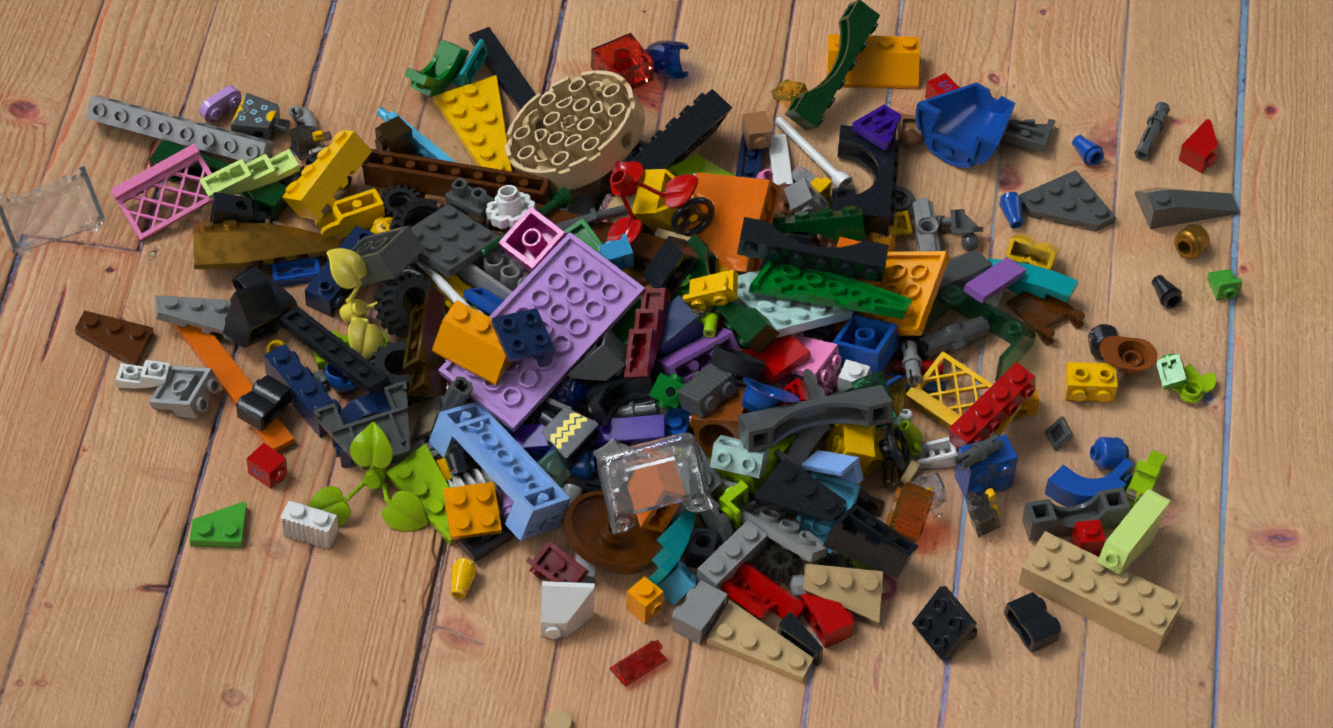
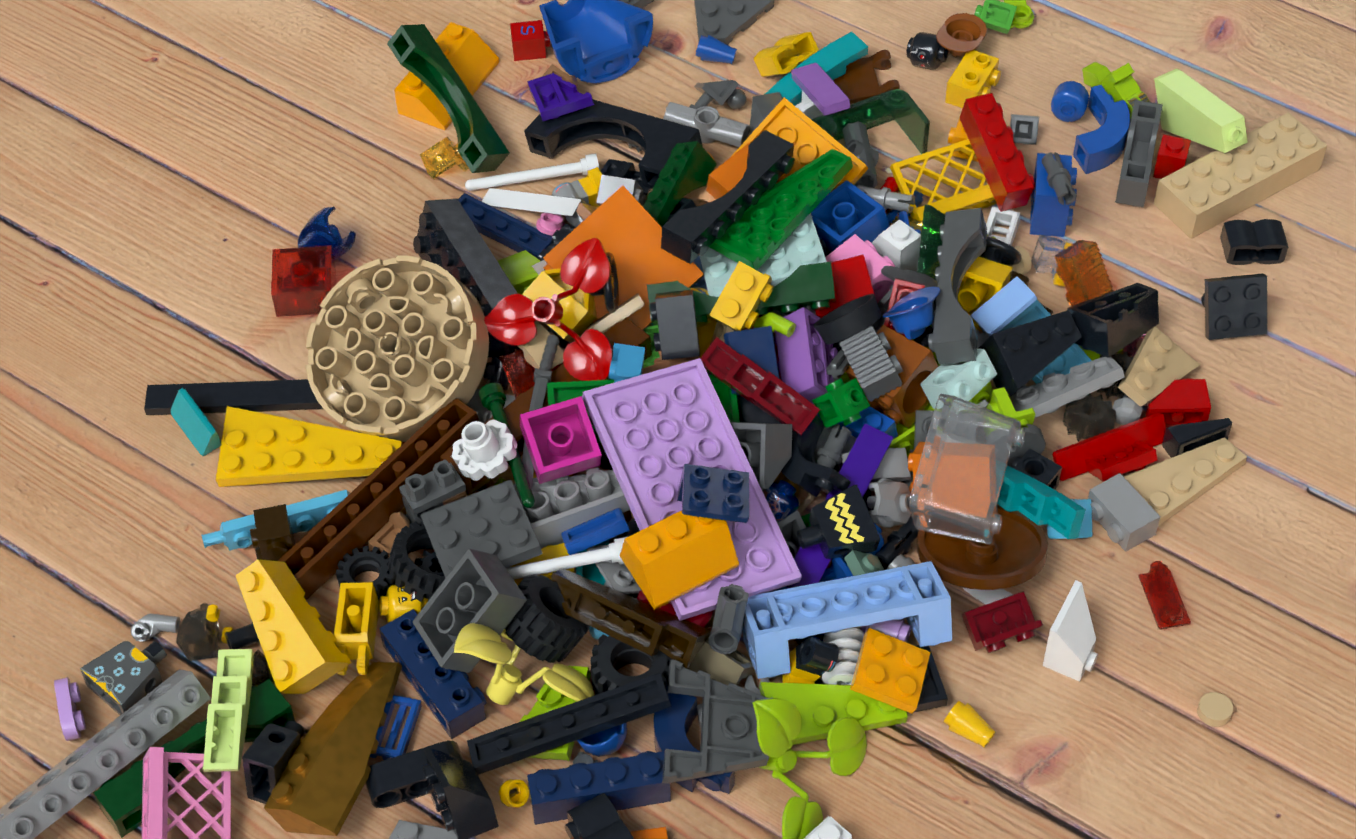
camera: 60 degrees left, 0 degrees up
(440, 71) = (183, 456): green arch -> none
(644, 600) = (1086, 555): light orange brick -> none
(741, 547) = (1078, 461): light grey arch -> none
(756, 130) = (484, 201): medium nougat brick -> none
(982, 516) = (1099, 224): clear smoke piece -> none

